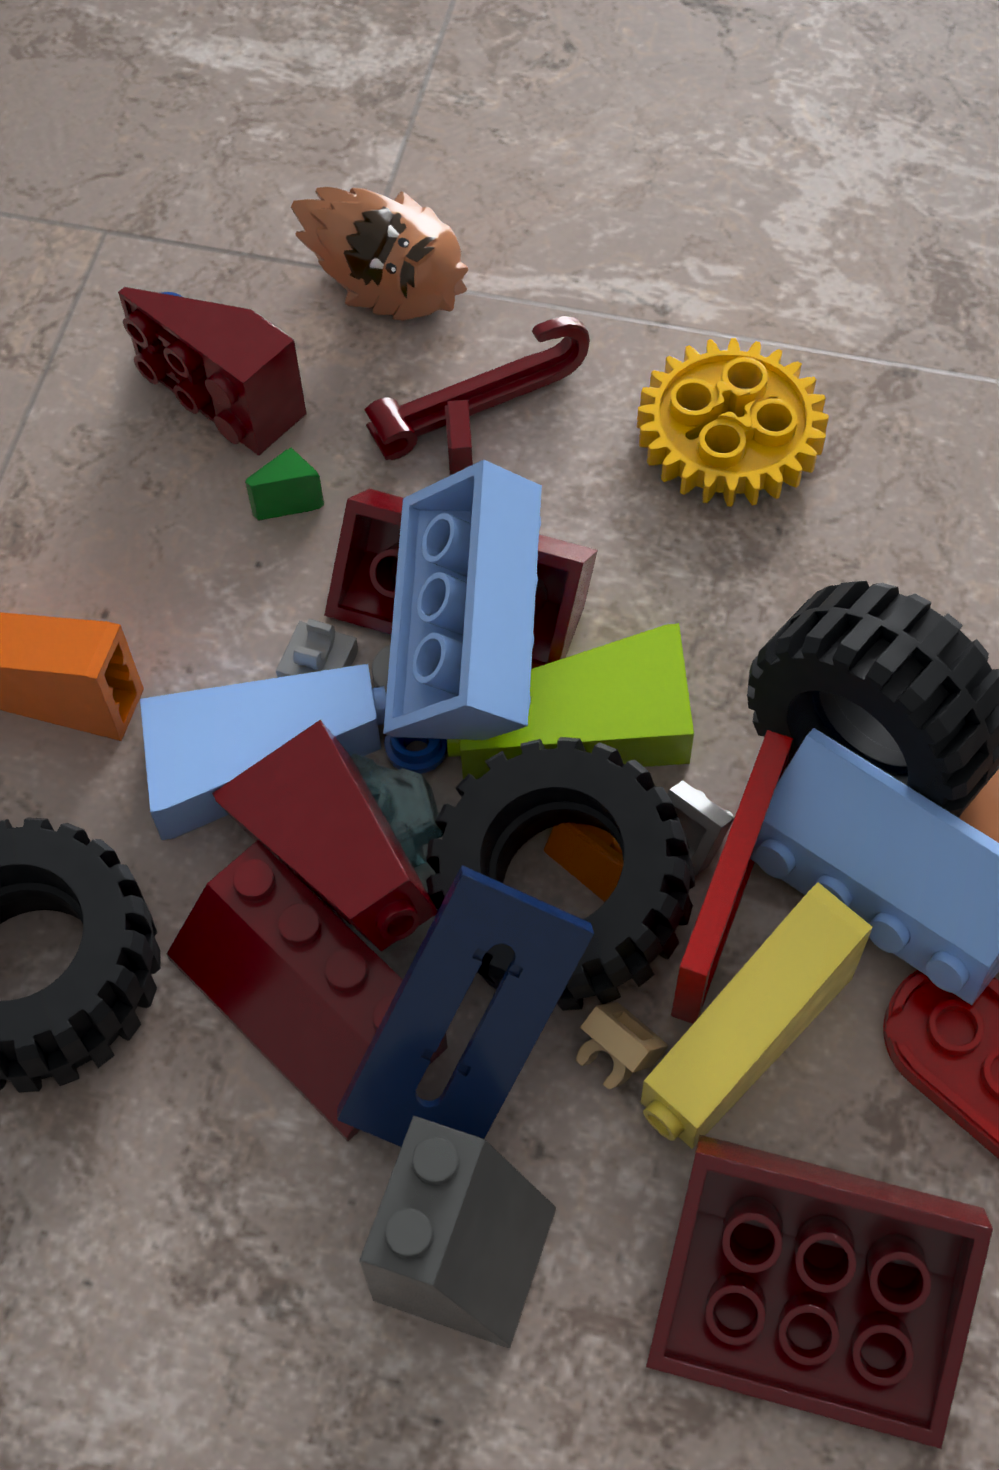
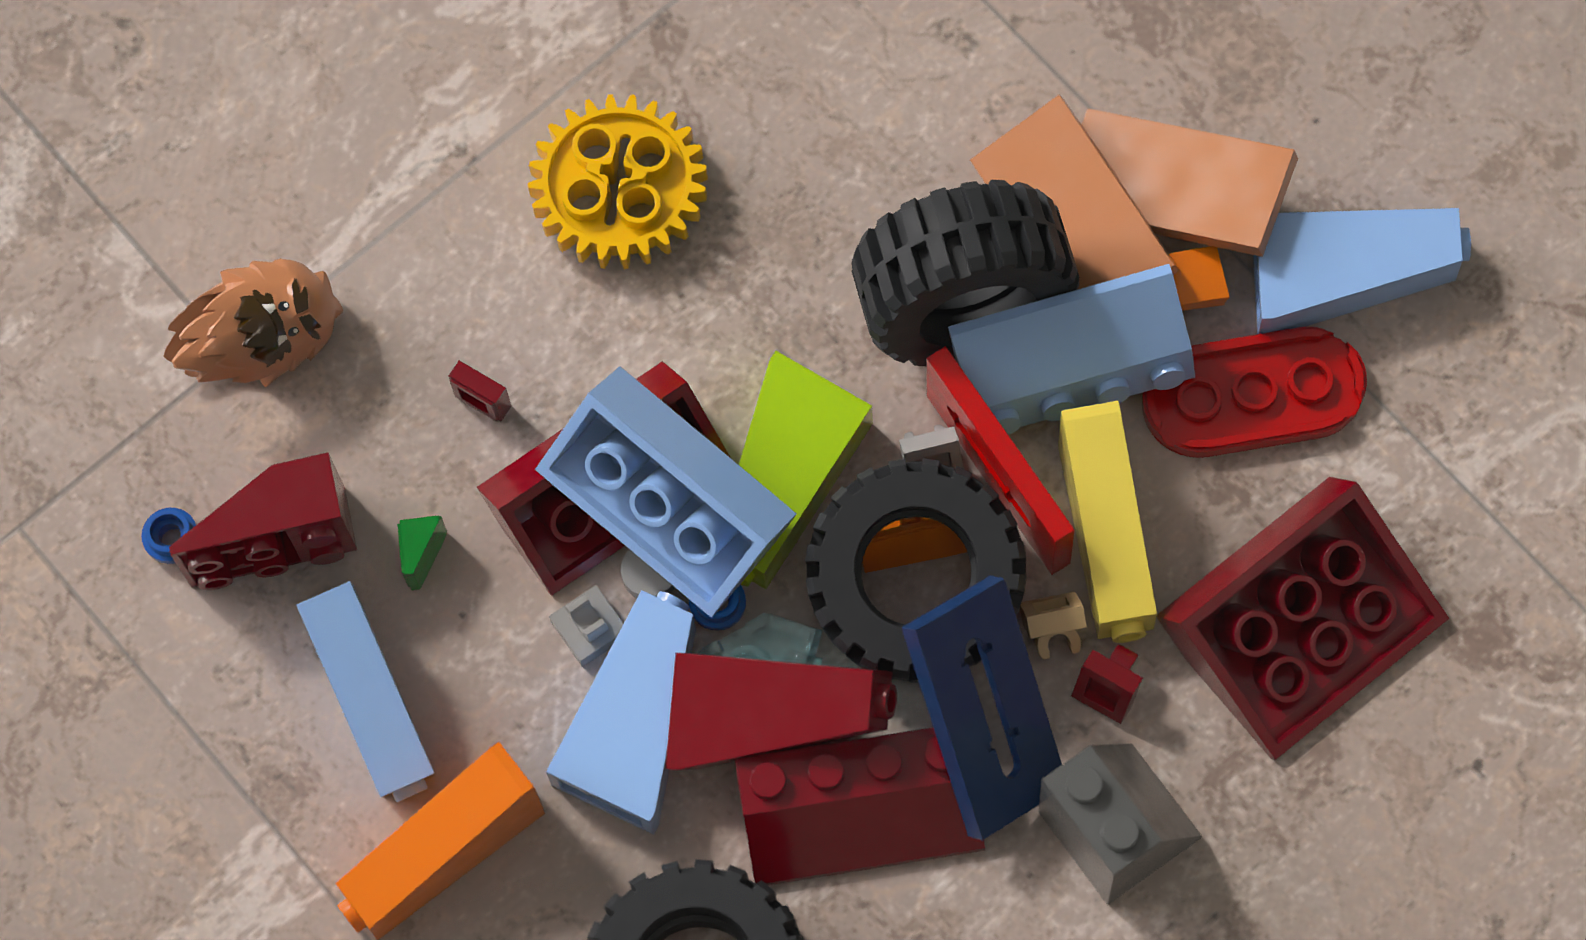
camera: 50 degrees left, 10 degrees up
(127, 517) = (367, 691): none -> light blue slope
(398, 427) = (422, 427): dark red piece -> none
(596, 1138) = (1108, 683): none -> dark red tile

